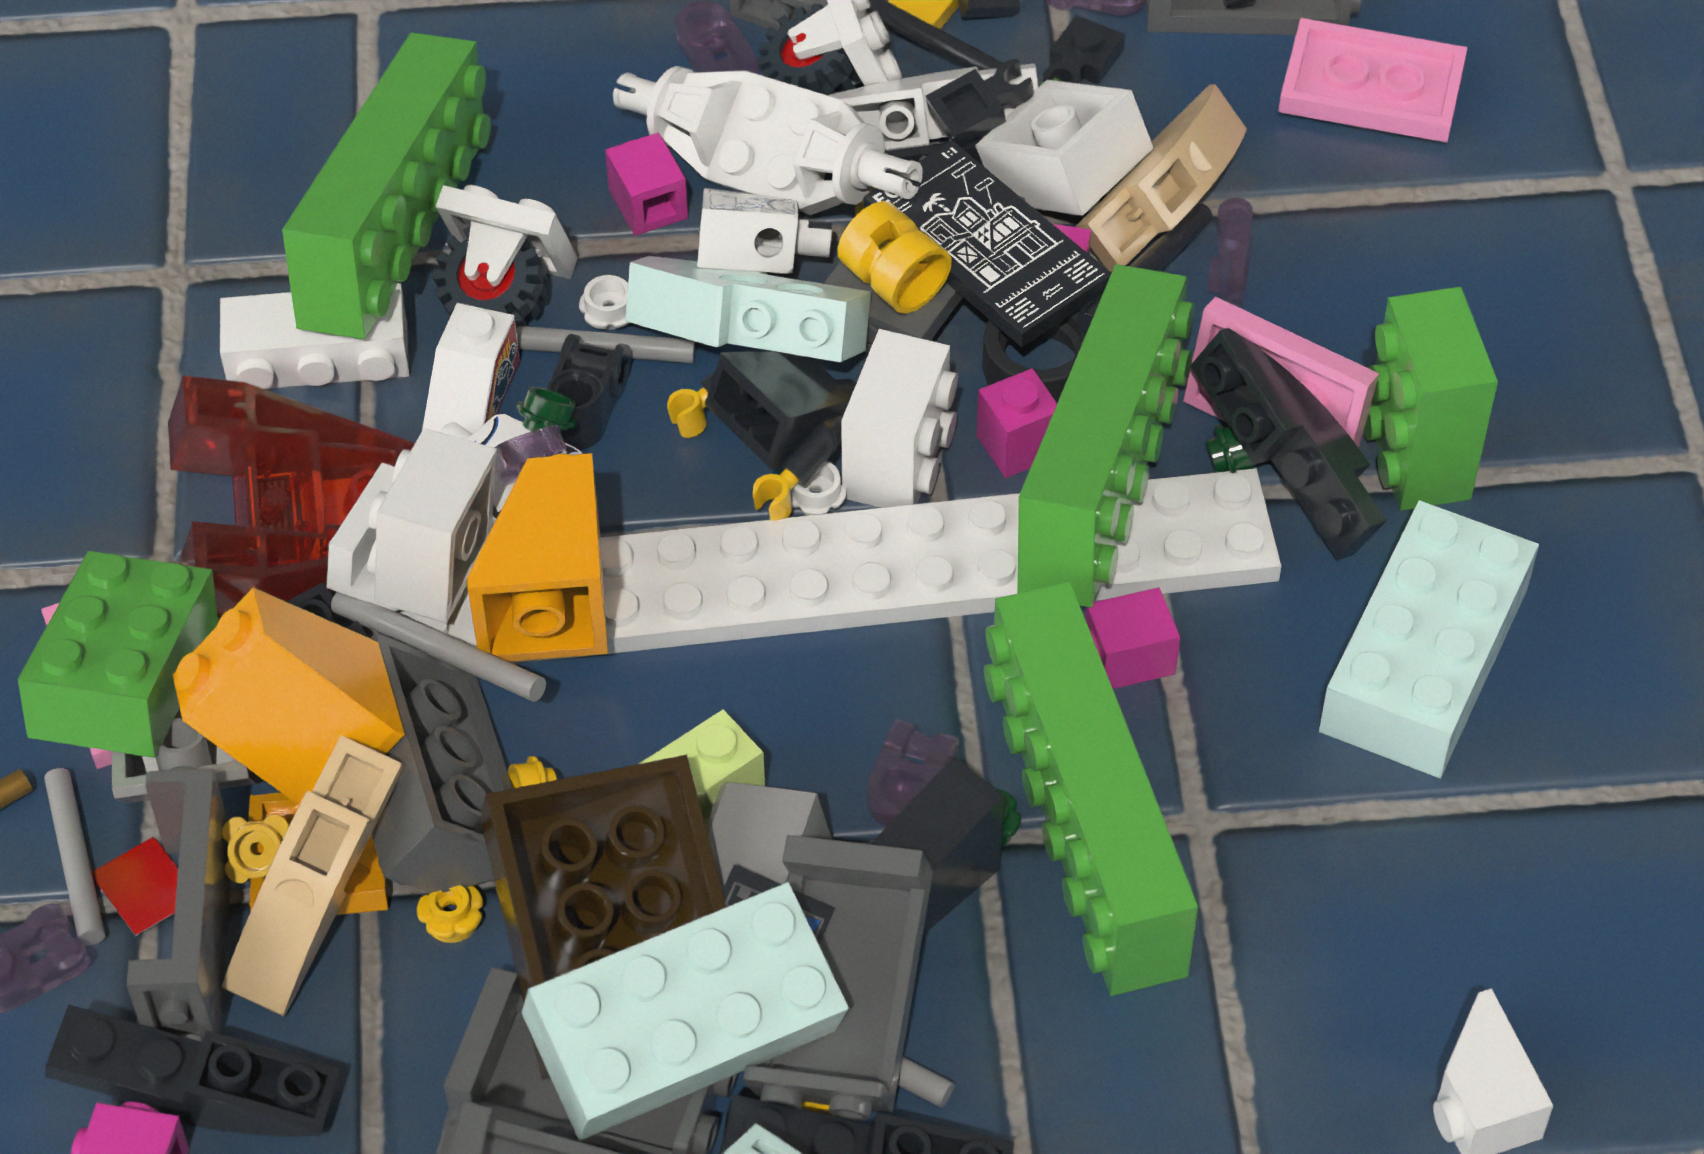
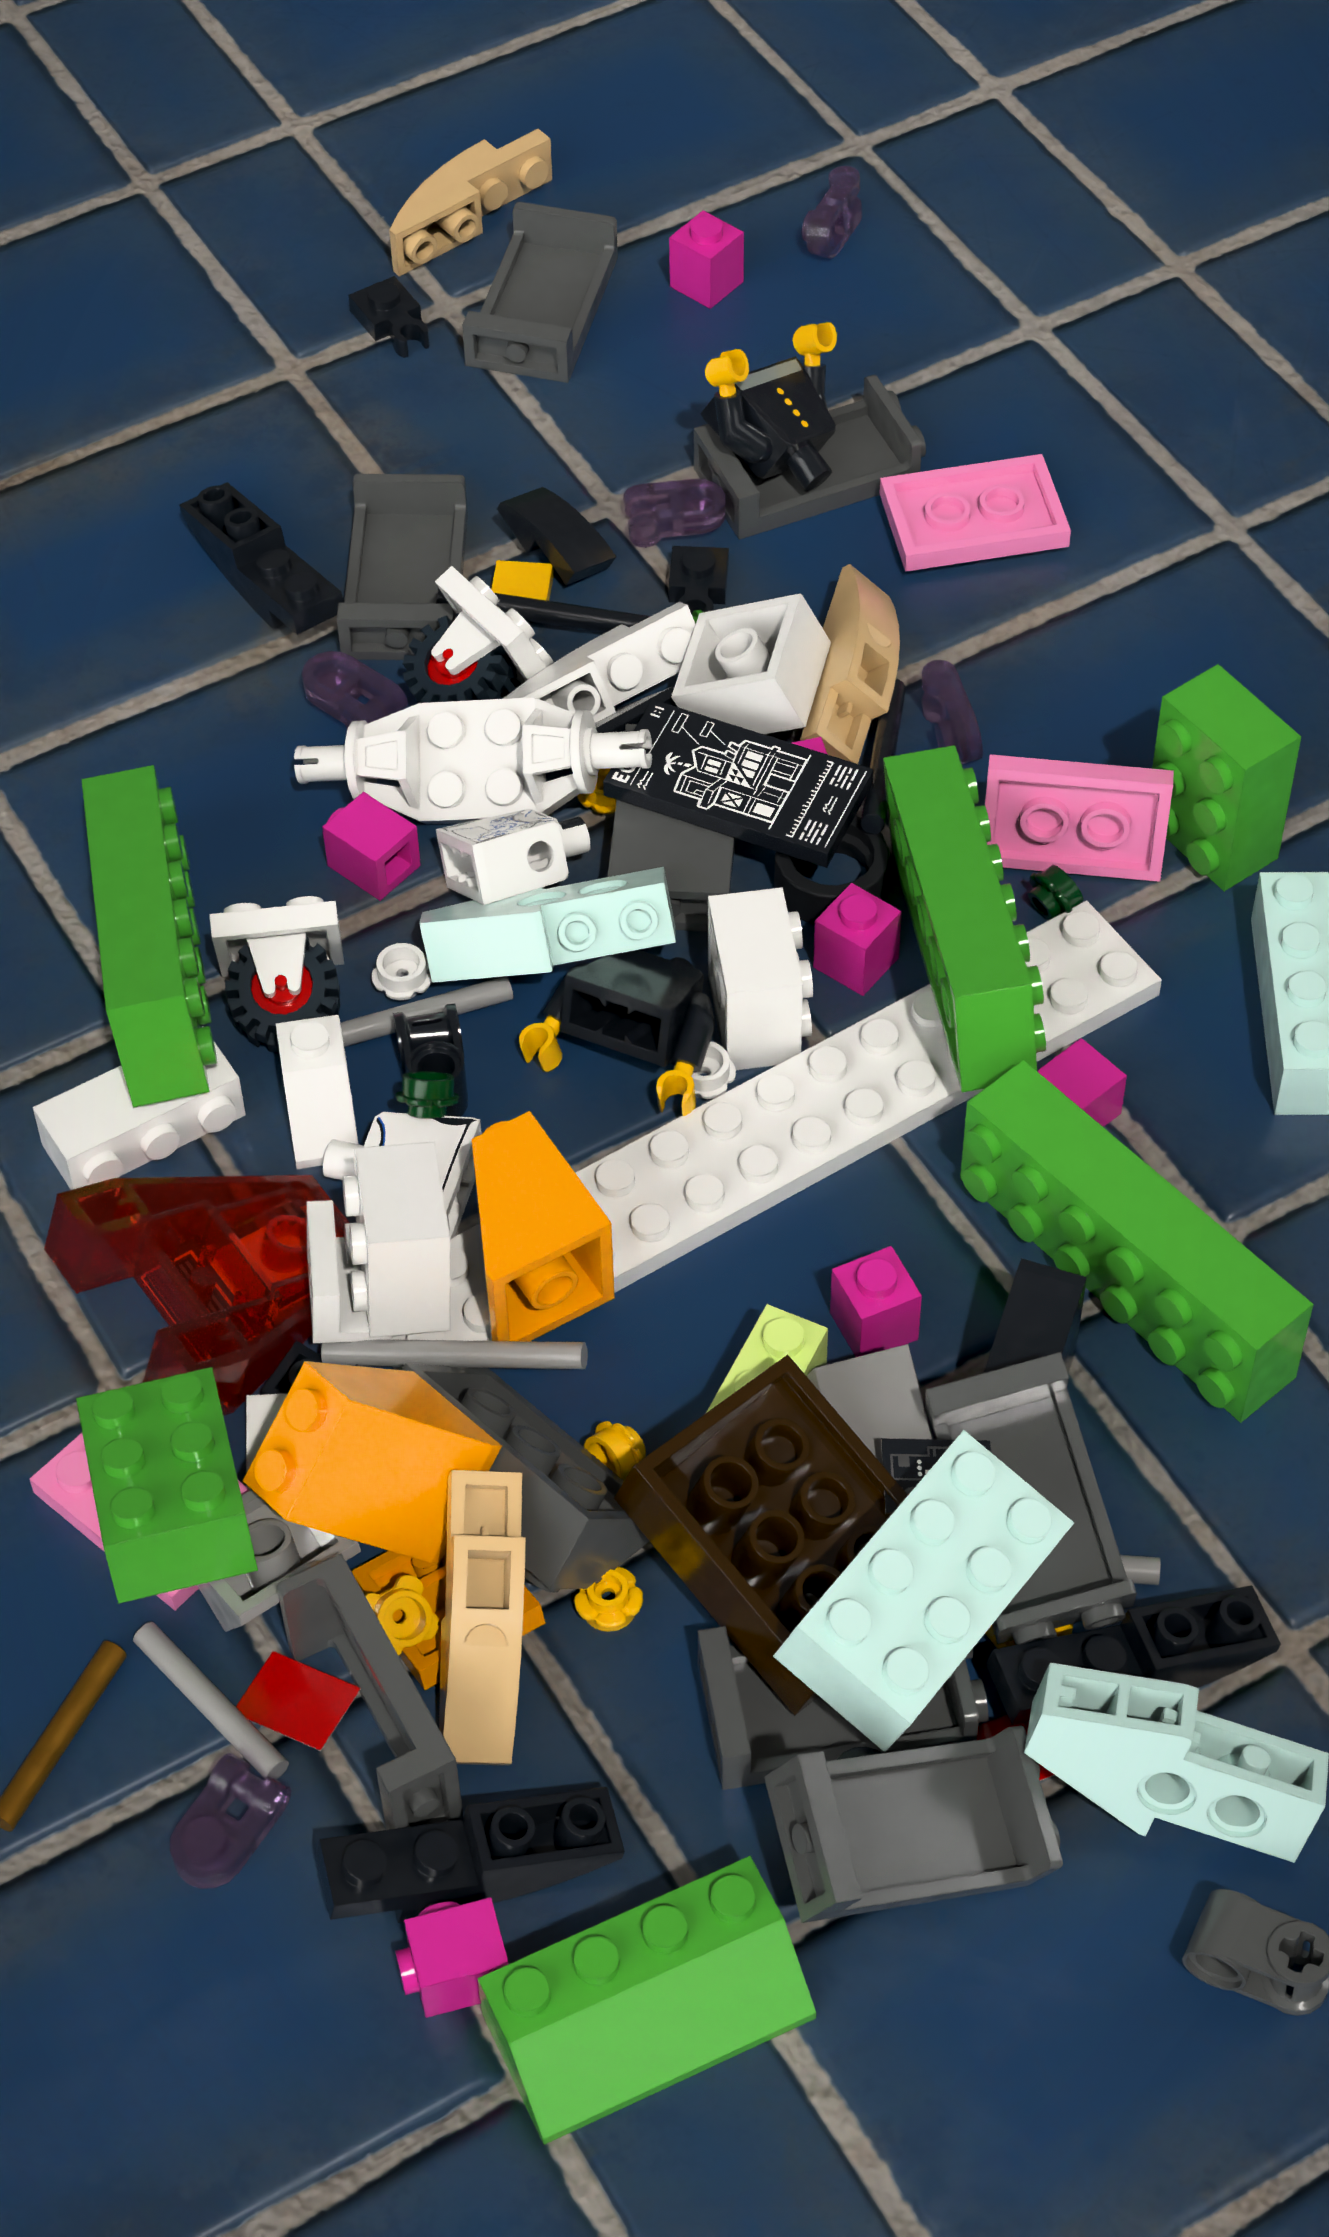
camera: 25 degrees left, 0 degrees up
(515, 451) = (456, 1129): clear purple plate -> none
(832, 750) = (875, 1303): none -> dark pink brick
(894, 257) = (679, 828): yellow wheel -> none
(898, 781) = (952, 1314): clear purple plate -> none
(975, 105) = (652, 661): black plate -> none
(1290, 426) = (1110, 851): black slope -> none

